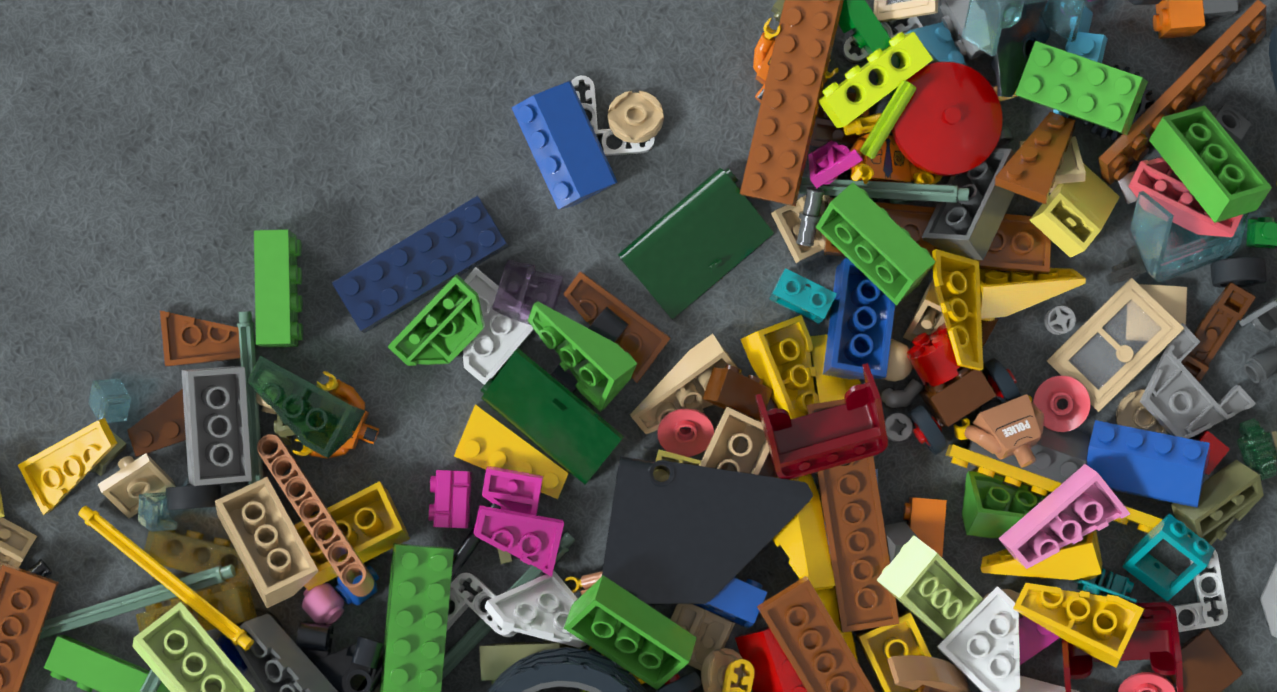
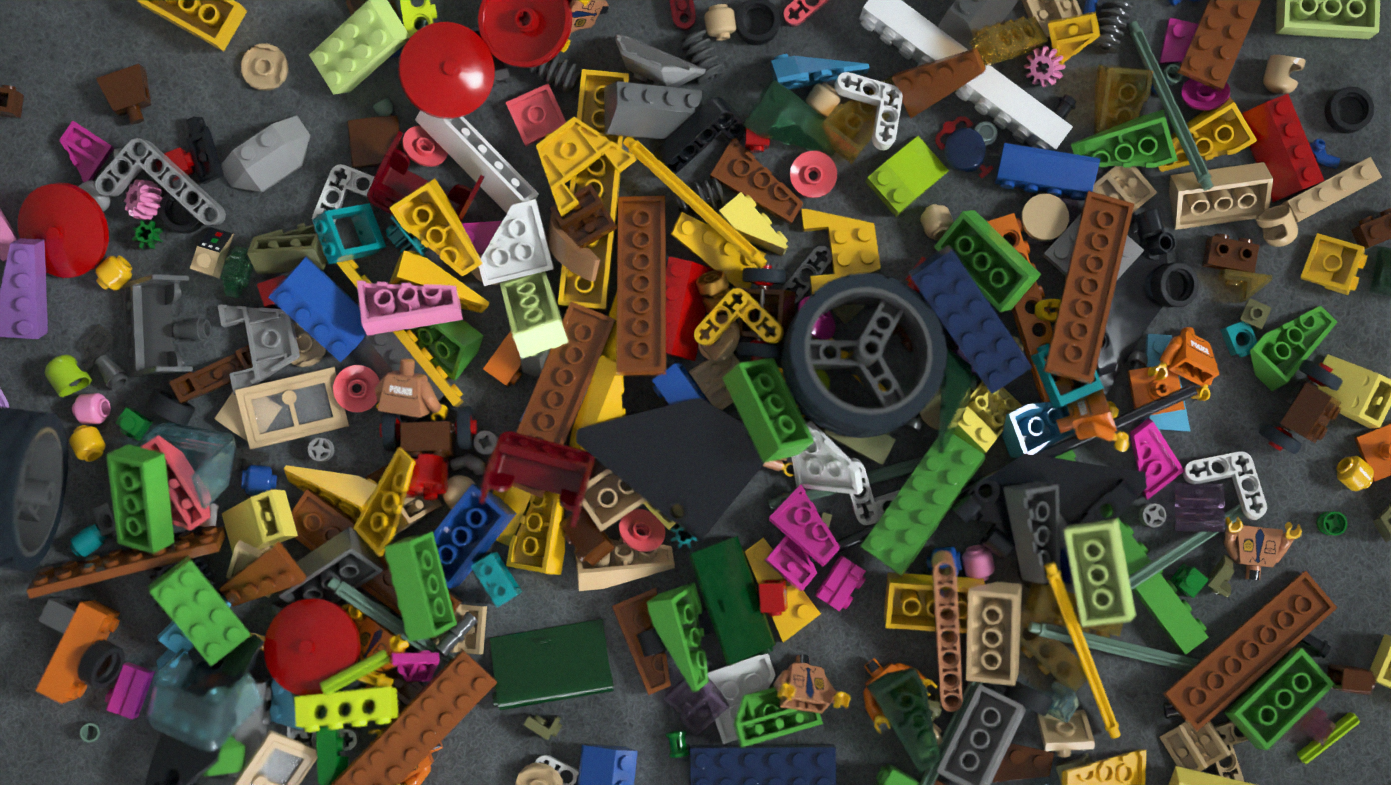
camera: 150 degrees left, 0 degrees up
(423, 373) = (807, 688): none -> nougat torso
(512, 444) = (773, 596): none -> red brick
(519, 230) = (674, 751): none -> green bush
(644, 448) = (687, 541): none -> teal gear
(671, 175) = (539, 726): none -> olive bracket
(1104, 252) = (258, 479): none -> blue head
(1236, 89) = (87, 541): none -> teal brick

